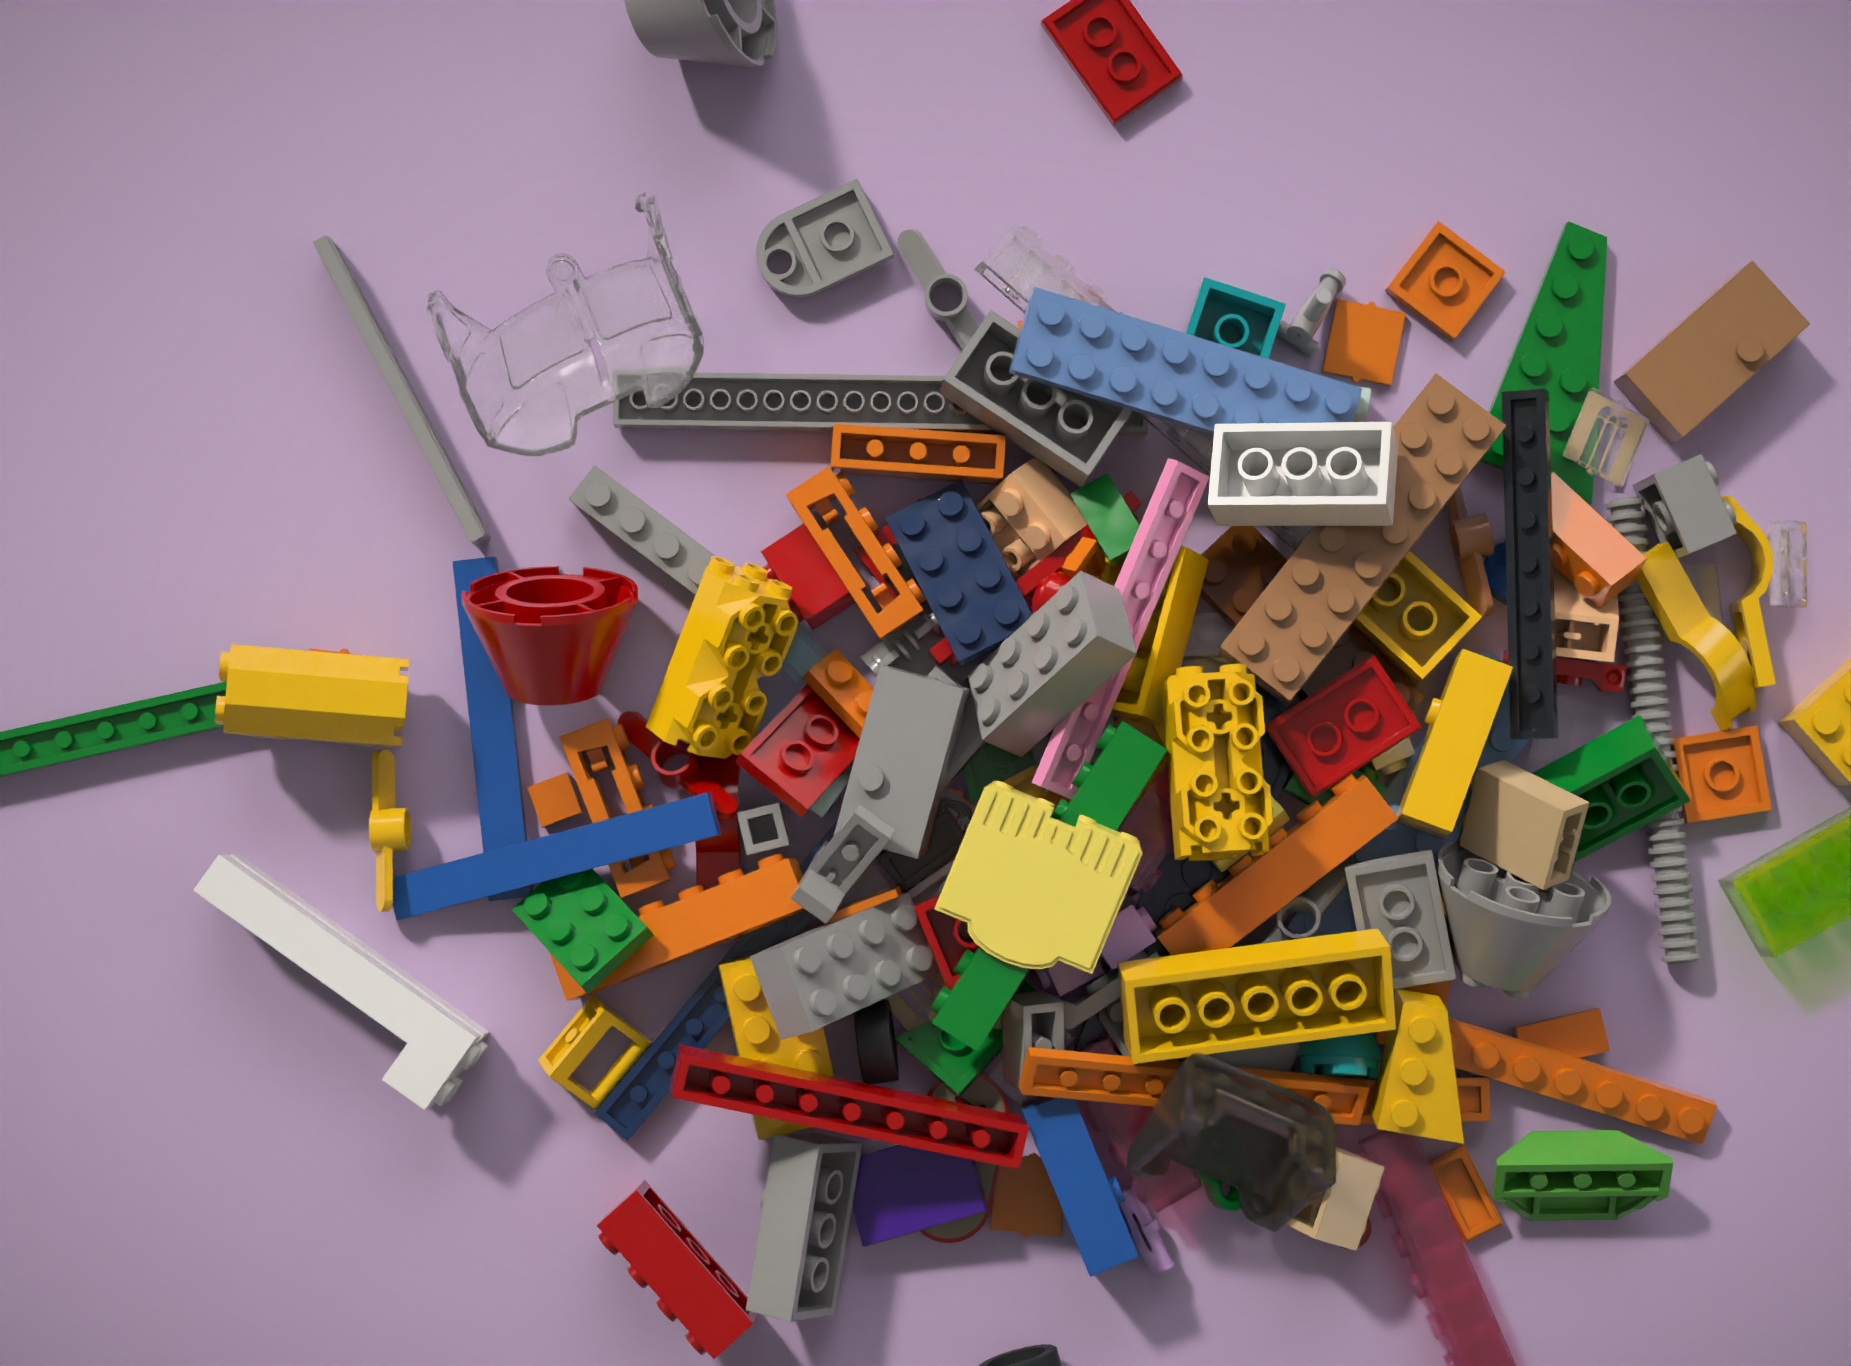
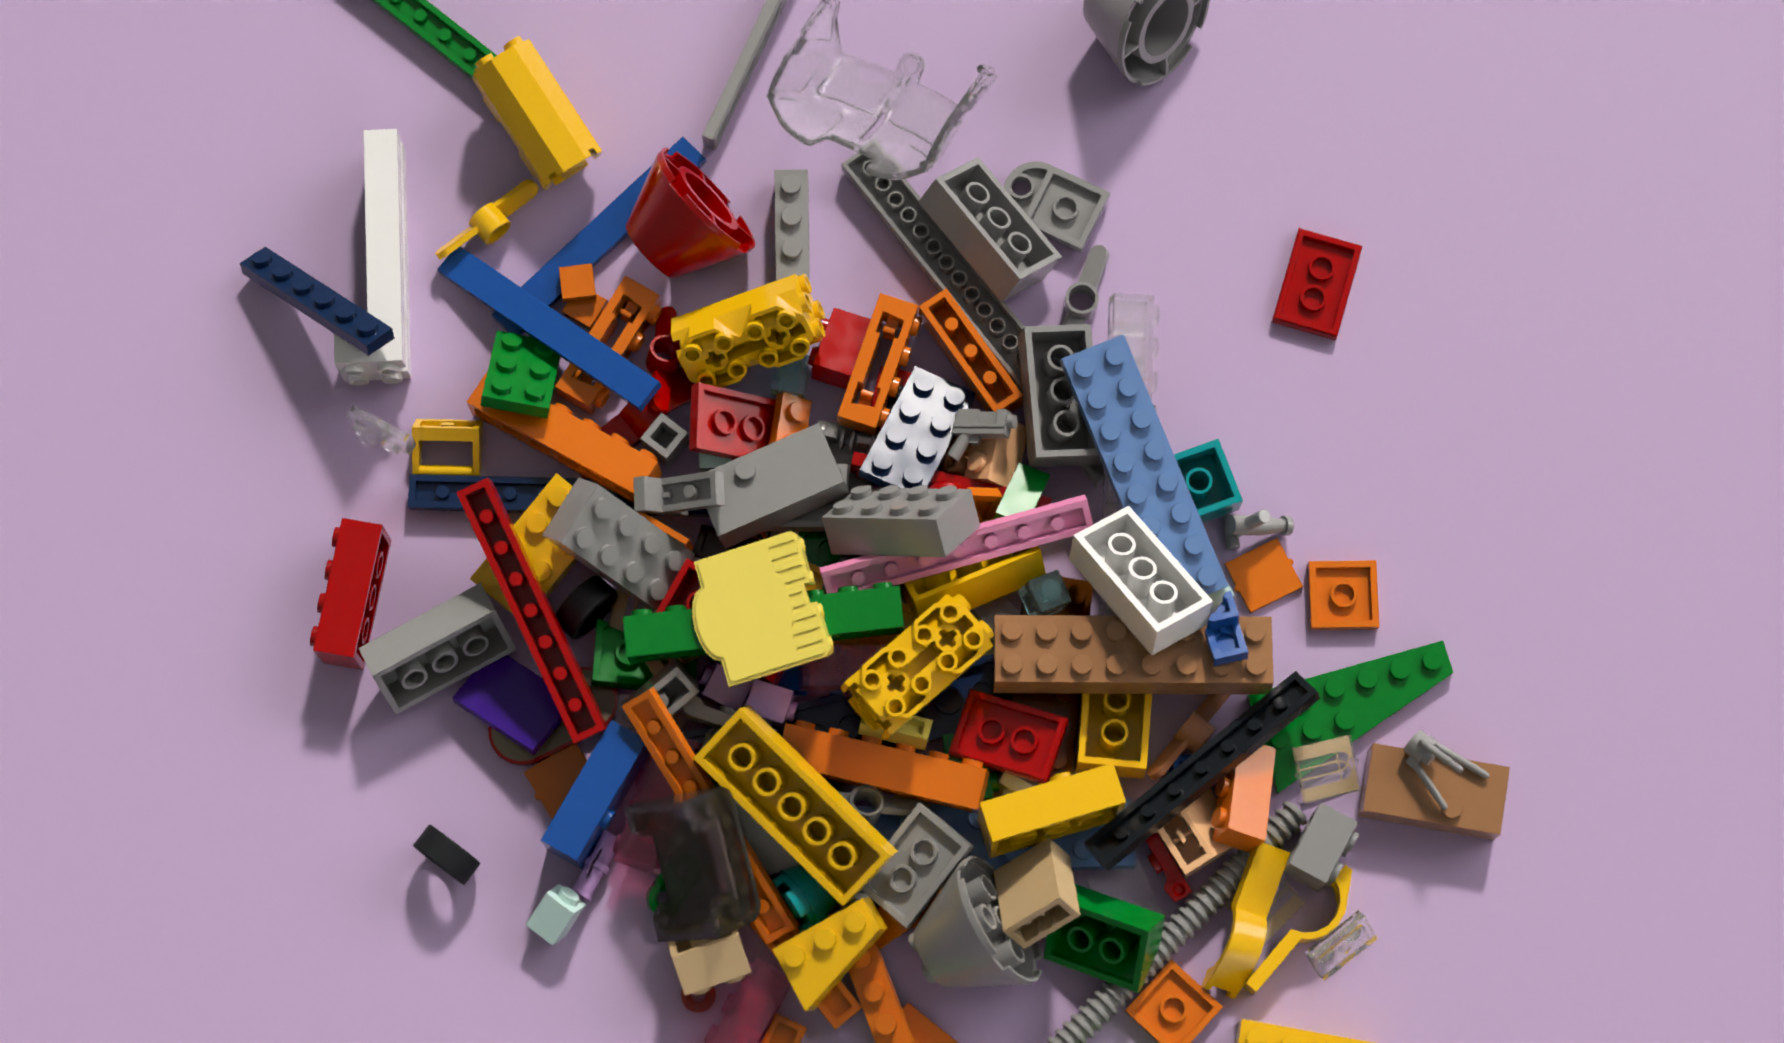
camera: 50 degrees right, 10 degrees down
(340, 1075) = (317, 301): none -> dark blue plate
(521, 1119) = (374, 431): none -> clear plate
(525, 789) = (577, 282): none -> orange tile
(803, 330) = (989, 229): none -> light grey brick
(1000, 508) = (973, 424): none -> light grey piece
(1164, 1309) = (556, 914): none -> light aqua brick
(1230, 578) = (1045, 594): none -> clear light blue brick
(1424, 434) = (1224, 633): none -> blue slope
(1677, 327) = (1424, 750): none -> light grey plant

